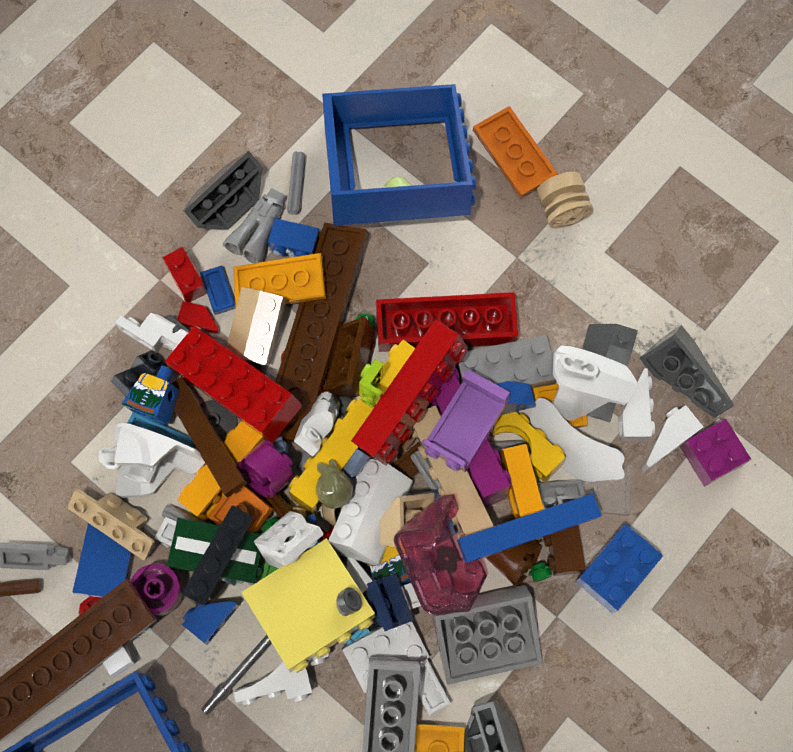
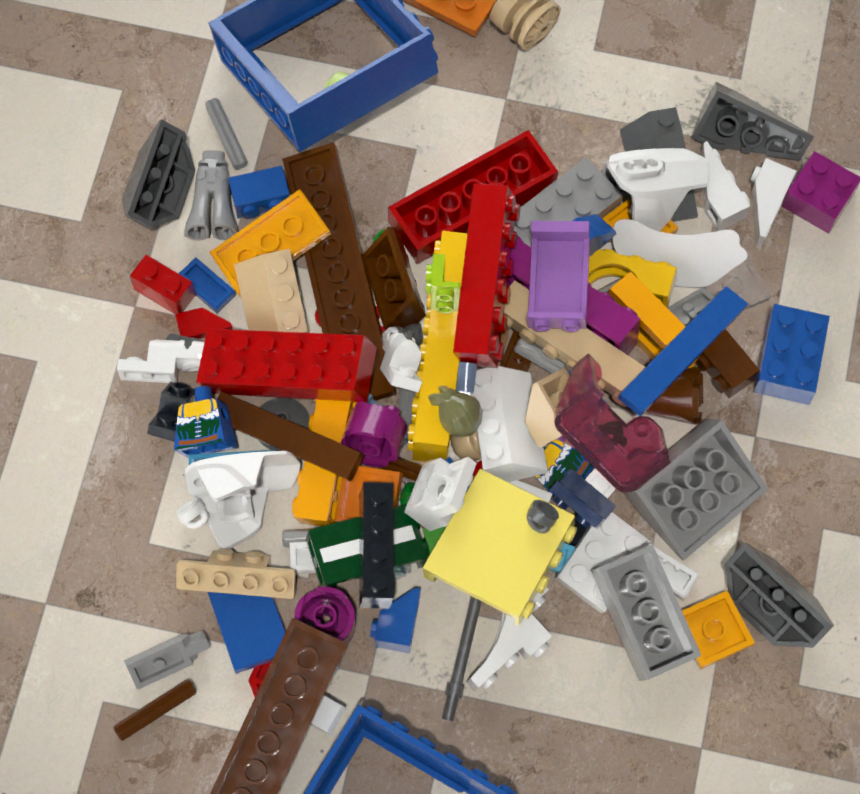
camera: 25 degrees left, 5 degrees down
(540, 572) = (714, 398): green plate -> none

